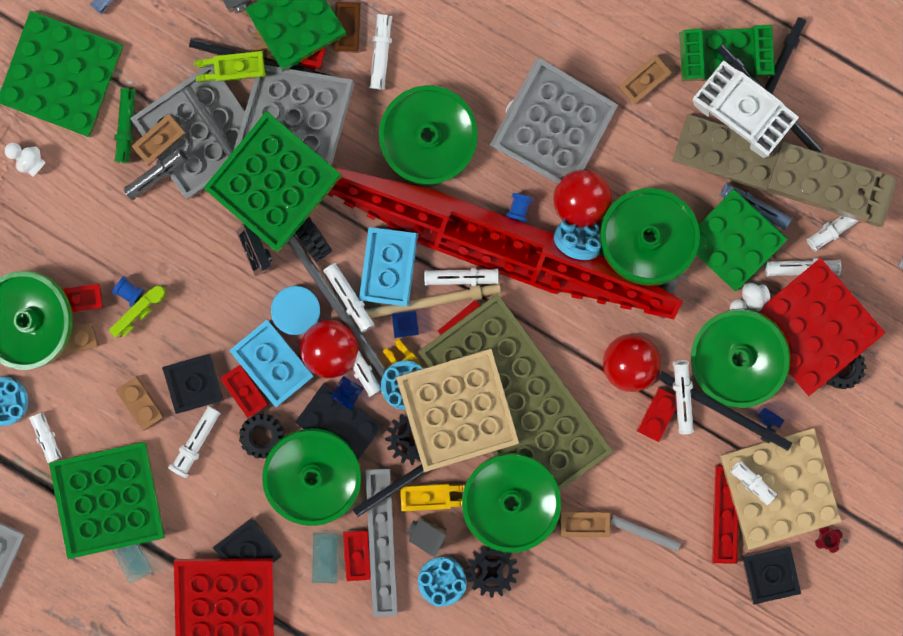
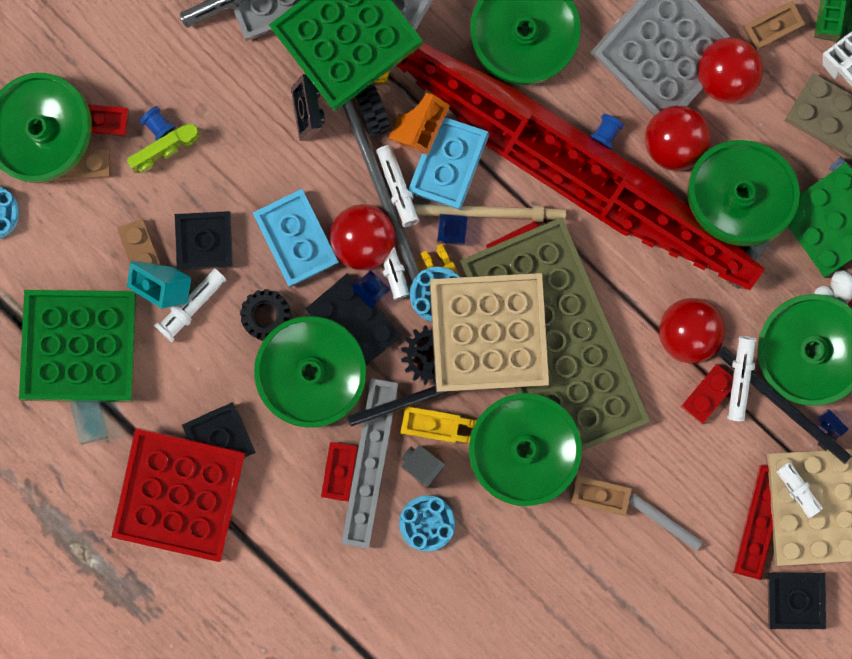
camera: 10 degrees right, 5 degrees down
(45, 437) = (27, 262): white pin -> none
(163, 432) = (159, 284): none -> teal slope
(244, 391) = (258, 261): red plate -> none
(295, 310) = (335, 186): medium azure tile -> none
(325, 558) = (303, 467): clear light blue plate -> none
(357, 241) = (421, 125): none -> orange arch
(491, 277) = (558, 198): white pin -> none
(499, 578) = (492, 534): black gear -> none
(577, 241) = (663, 181): medium azure tile -> none
(615, 128) = (730, 70): none -> red piece

